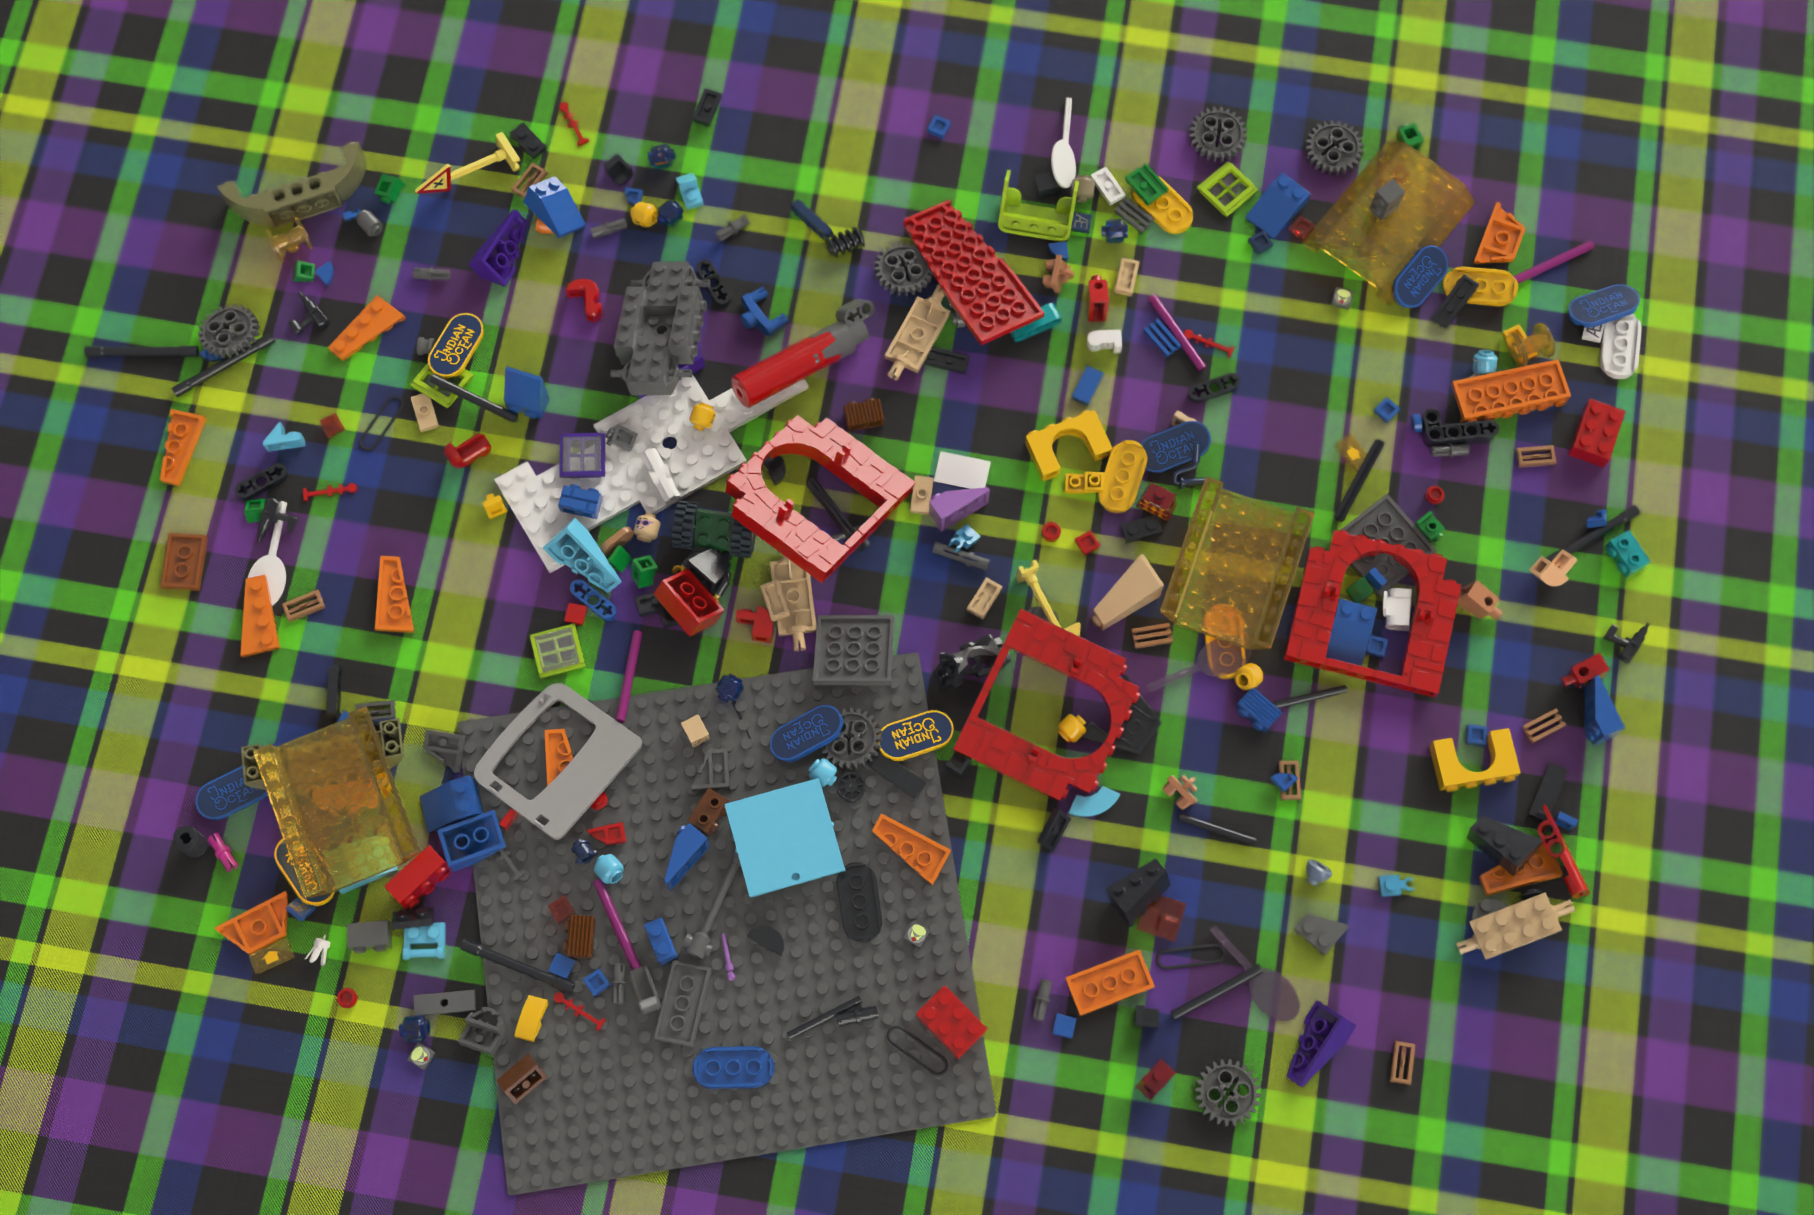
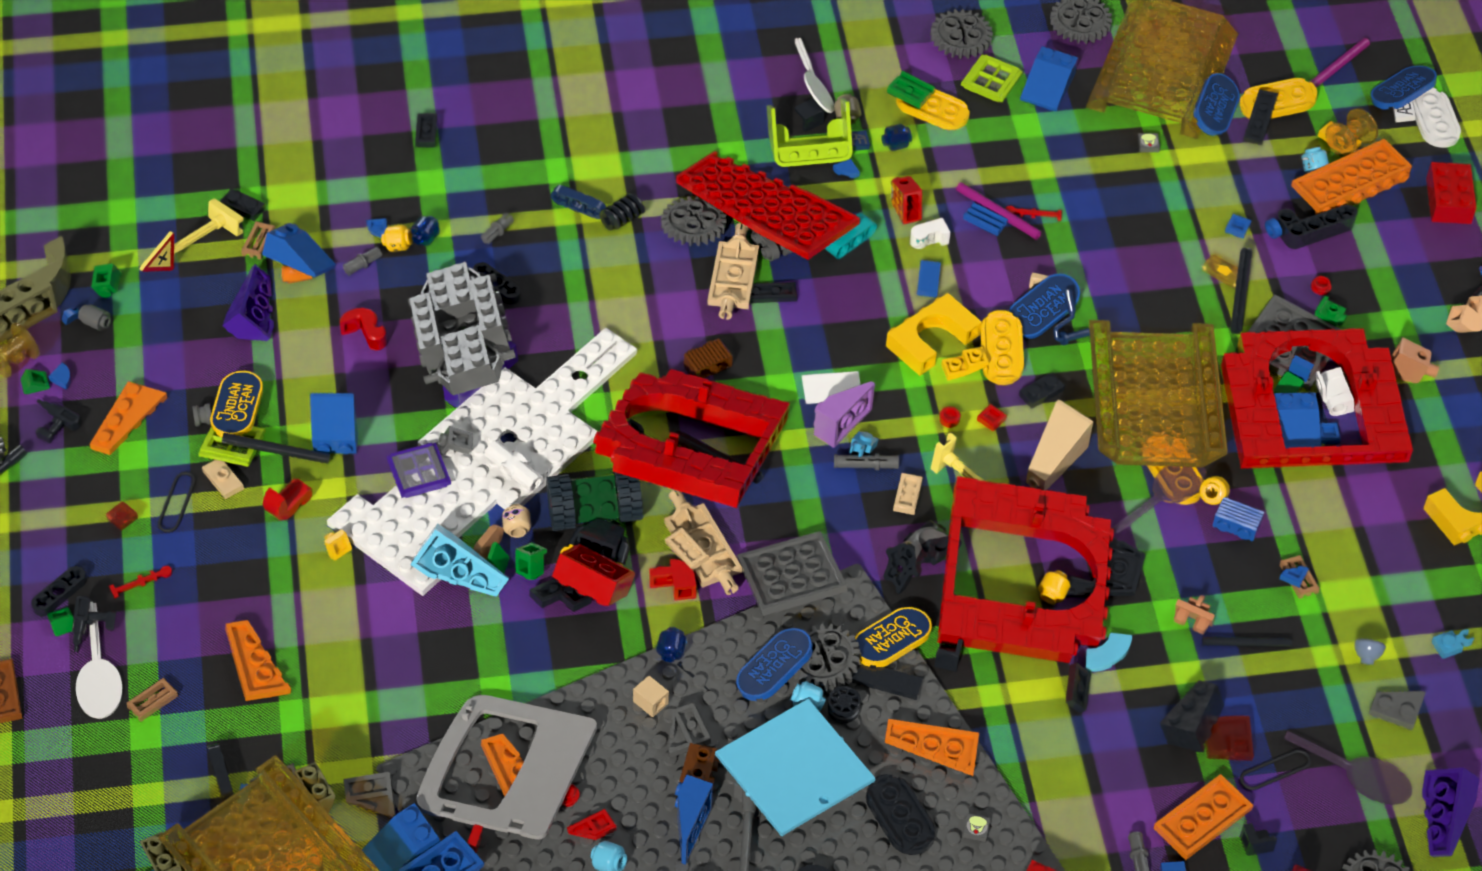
camera: 20 degrees left, 20 degrees down
(259, 624) = (105, 728): orange wing -> none
(279, 441) = (69, 545): medium azure slope -> none
(431, 274) = (182, 347): dark grey axle -> none
(557, 651) = (462, 666): clear piece -> none
(564, 108) = (270, 167): red piece -> none
(576, 614) = (468, 625): red tile -> none
(579, 596) = (488, 614): blue beam -> none
(580, 501) = (434, 510): blue brick -> none
(583, 851) = (573, 848): dark blue brick -> none
(618, 170) = (353, 205): black panel -> none
(628, 676) = (553, 666): magenta piece -> none
(661, 156) = (395, 183): head -> none
(689, 191) = (436, 207): medium azure slope -> none
(702, 416) = (537, 399): yellow head -> none
(755, 317) = (556, 301): blue connector -> none
(805, 356) = (625, 317): red piece -> none
(921, 495) = (800, 419): tan plate -> none
(939, 126) = (676, 93): blue tile -> none
(1060, 274) = (856, 185): nougat hips -> none
(1108, 186) = (872, 102): white plate -> none
(1123, 205) = (909, 119): dark grey tile -> none
(1126, 277) = (926, 174): tan plate -> none
(1158, 501) = (1047, 357): dark red torso -> none
(1169, 639) = (1096, 479): medium nougat tile -> none
(1216, 992) = (1319, 793): black piece -> none
(1219, 381) = (1062, 242): black beam -> none
(1260, 242) = (1045, 115): dark blue tile -> none
(1302, 228) = (1081, 92): clear red plate -> none
(1310, 697) = (1287, 493): black bar -> none
(1386, 200) = (1158, 38): dark grey piece -> none
(1450, 450) = (1317, 243): dark grey axle -> none
(1476, 735) = (1466, 485): blue tile -> none
(1500, 238) = (1277, 56): orange wing -> none
(1520, 458) = (1404, 232): medium nougat tile -> none

